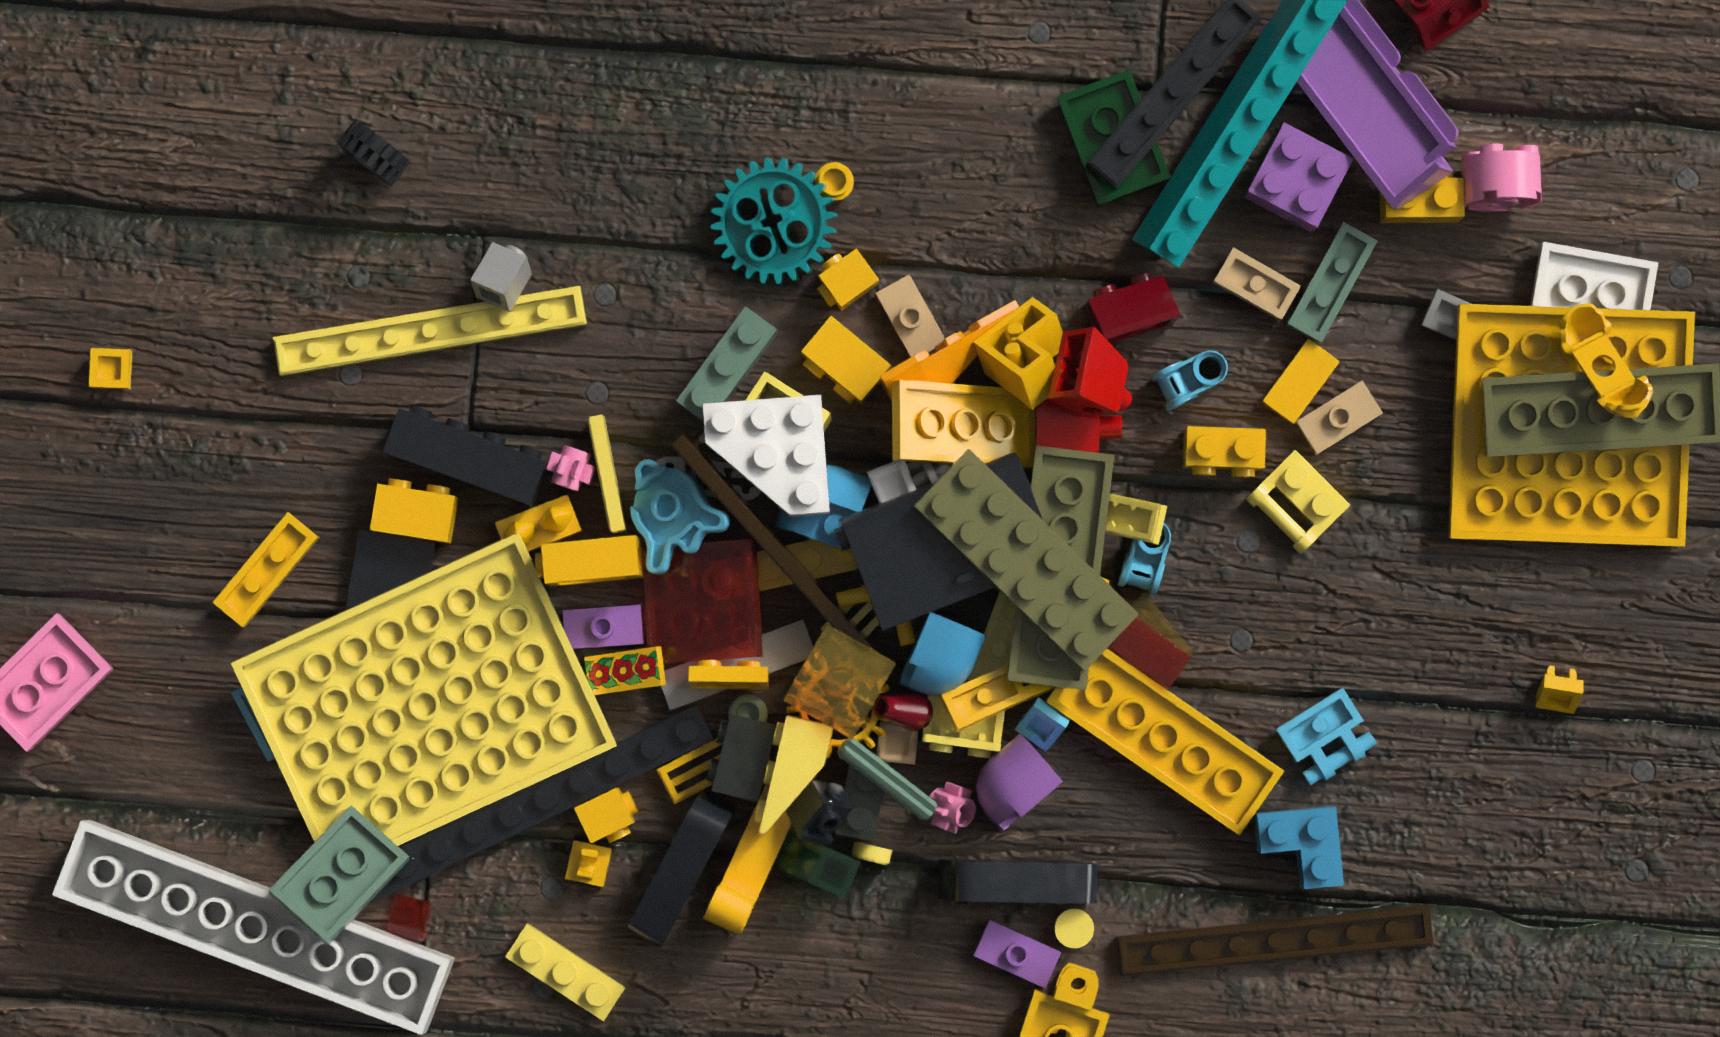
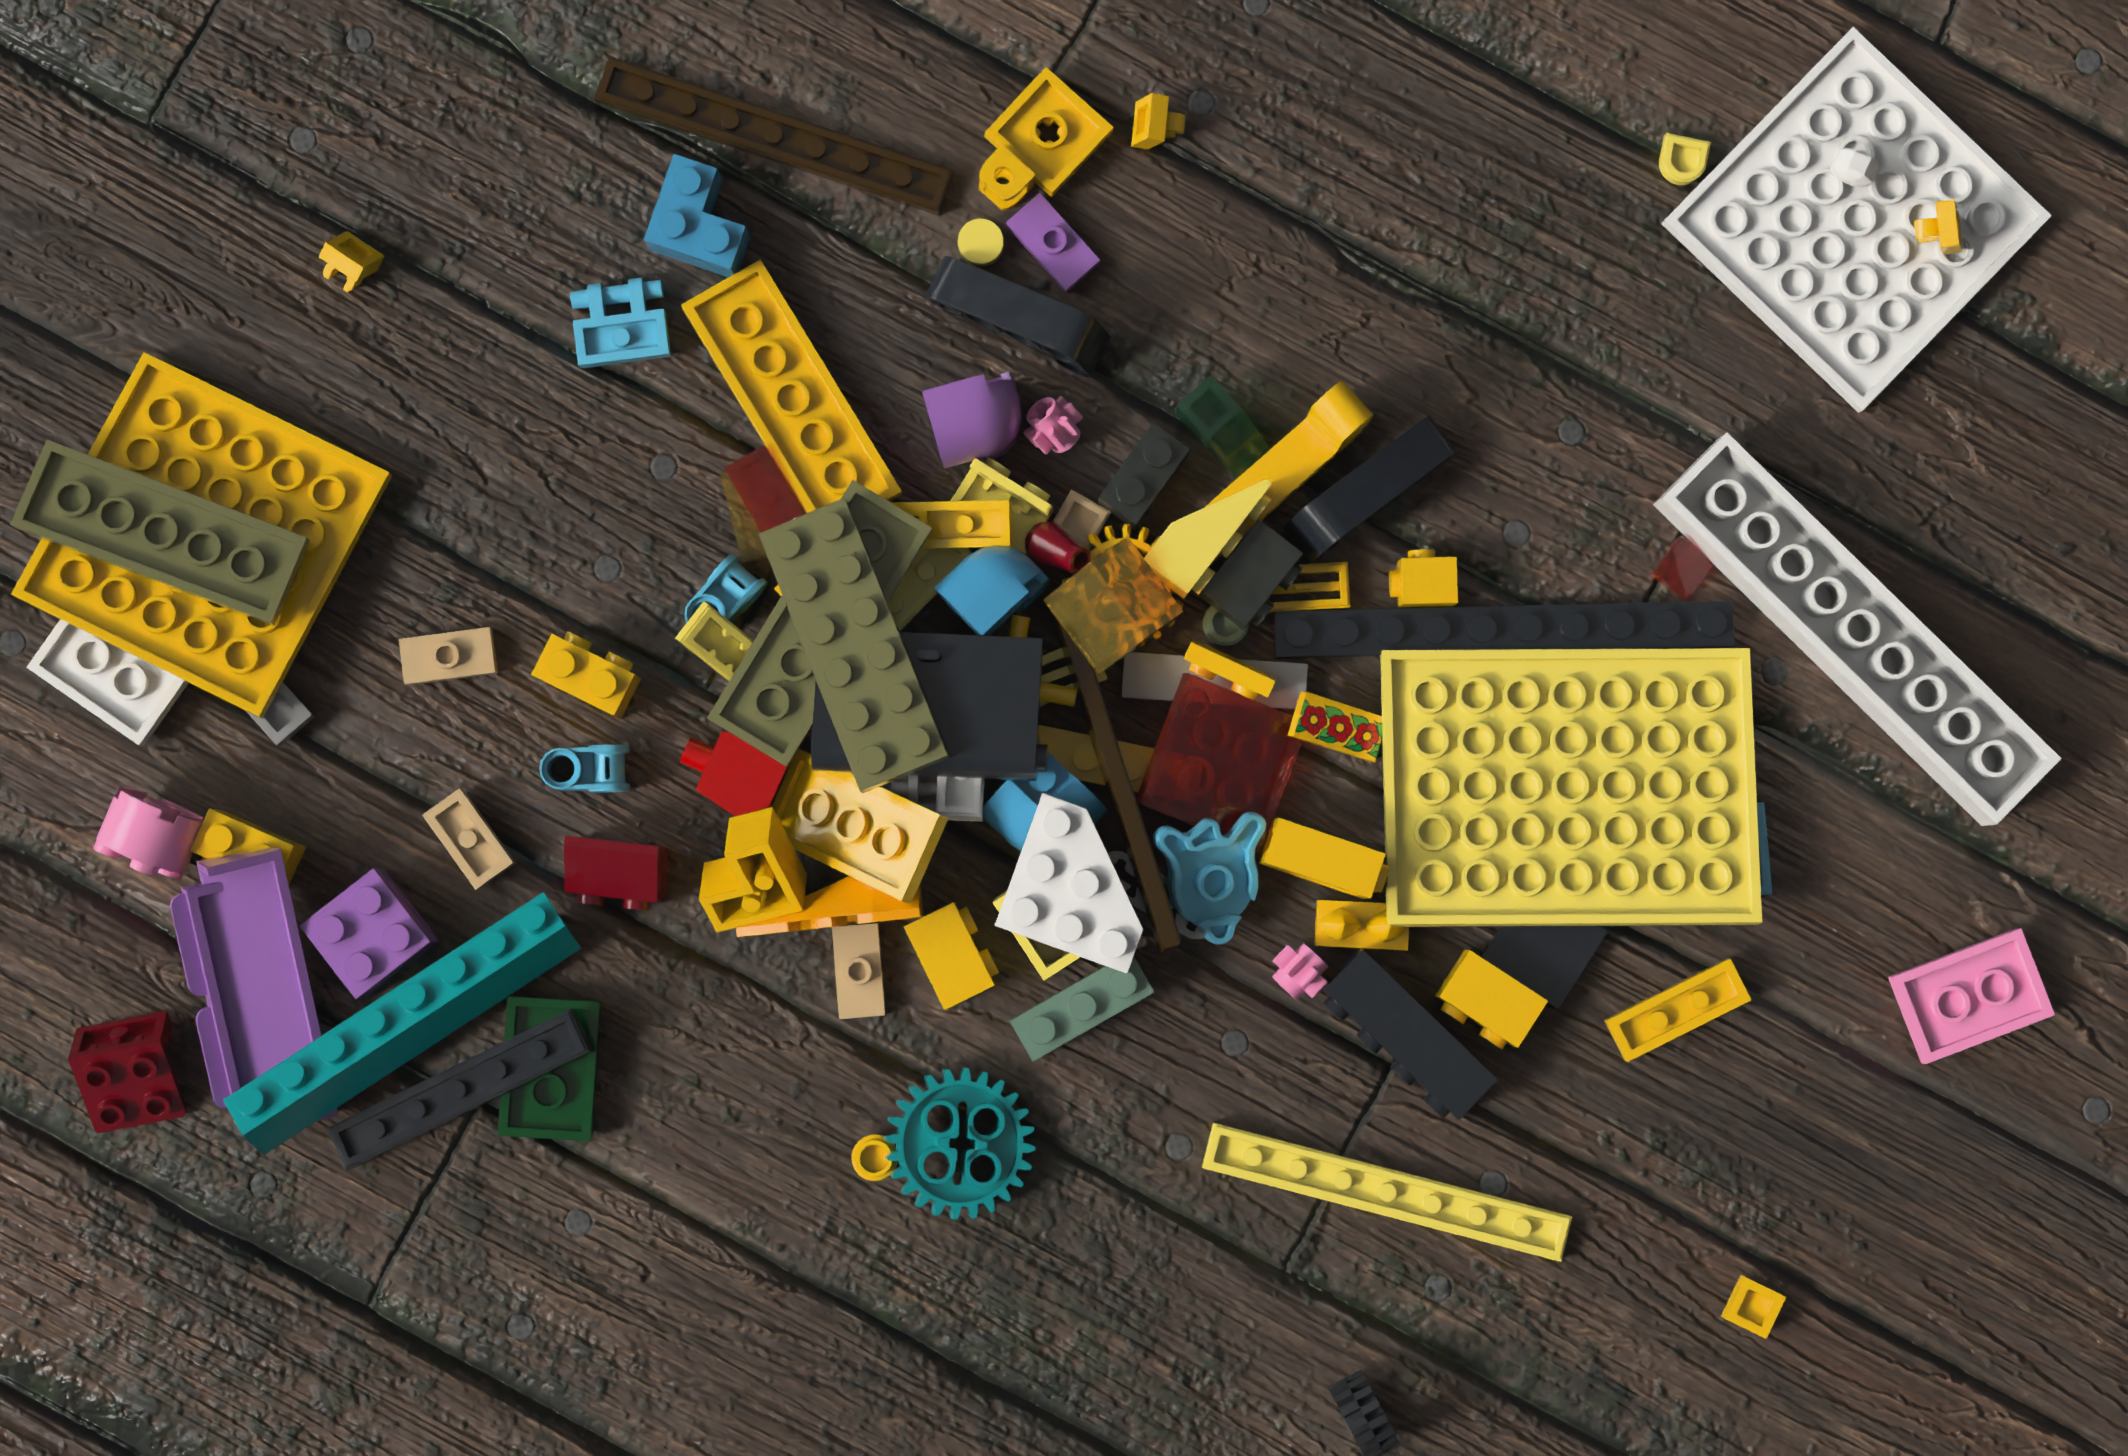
camera: 160 degrees left, 0 degrees up
(339, 875) = (1743, 640): sand green plate -> none
(501, 276) = (1283, 1216): light grey brick -> none
(565, 972) = (1541, 436): light yellow plate -> none
(588, 863) = (1466, 539): yellow tile -> none
(604, 626) = (1338, 785): medium lavender plate -> none
(607, 474) = (1263, 947): light yellow tile -> none
(819, 811) = (1197, 478): black brick -> none
(846, 279) = (910, 1044): yellow brick -> none
(871, 853) = (1160, 414): light yellow tile -> none
(887, 778) = (1108, 481): sand green axle -> none
(1042, 724) = (916, 470): medium azure plate -> none
(1089, 375) = (693, 816): red torso -> none
(1300, 381) = (471, 713): yellow tile -> none
(1307, 492) = (520, 591): light yellow plate -> none
(1331, 283) = (387, 804): sand green plate -> none
(1585, 337) = (141, 613): yellow piece -> none

